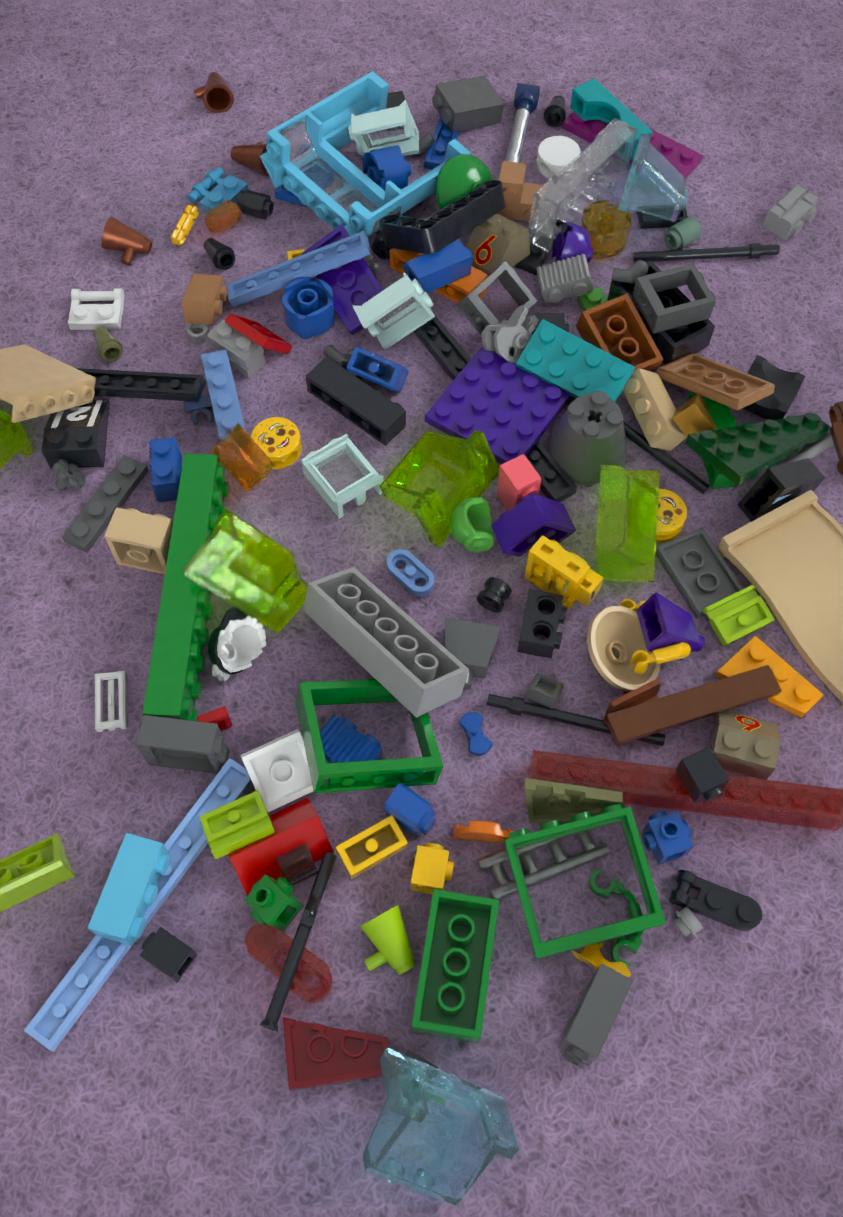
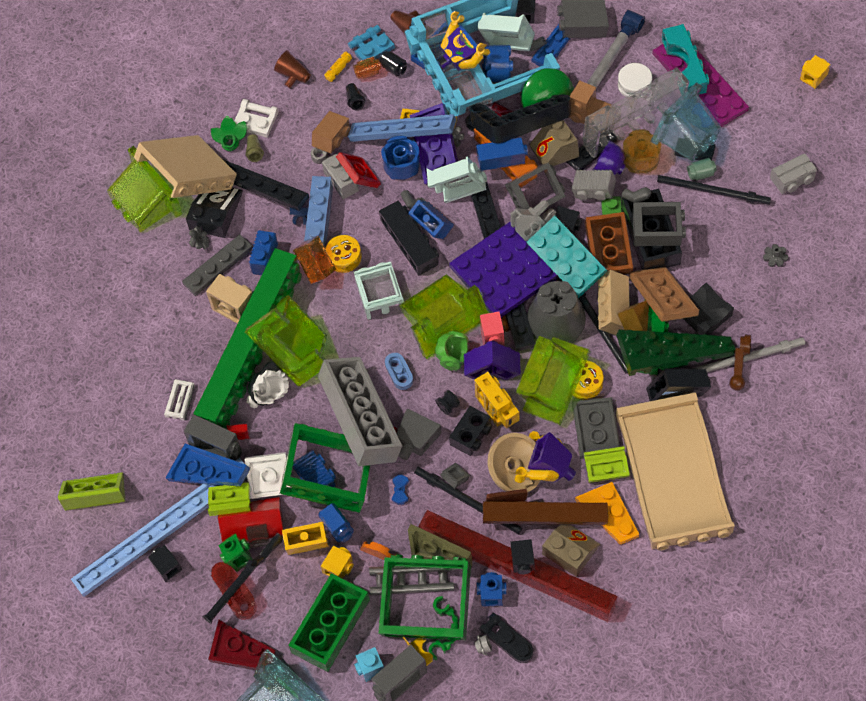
camera: 25 degrees right, 0 degrees up
(65, 332) = (229, 131): none -> green plate
(130, 889) = (154, 517): medium azure brick -> none
(183, 788) = (204, 467): none -> blue wing
(339, 157) = (460, 47): none -> torso
(391, 939) = (298, 596): lime piece -> none
(539, 1011) = (368, 664): none -> medium azure brick
(555, 112) = (650, 39): black cone -> none
(758, 101) = (814, 71): none -> yellow brick
(814, 308) = (775, 255): none -> dark grey plant

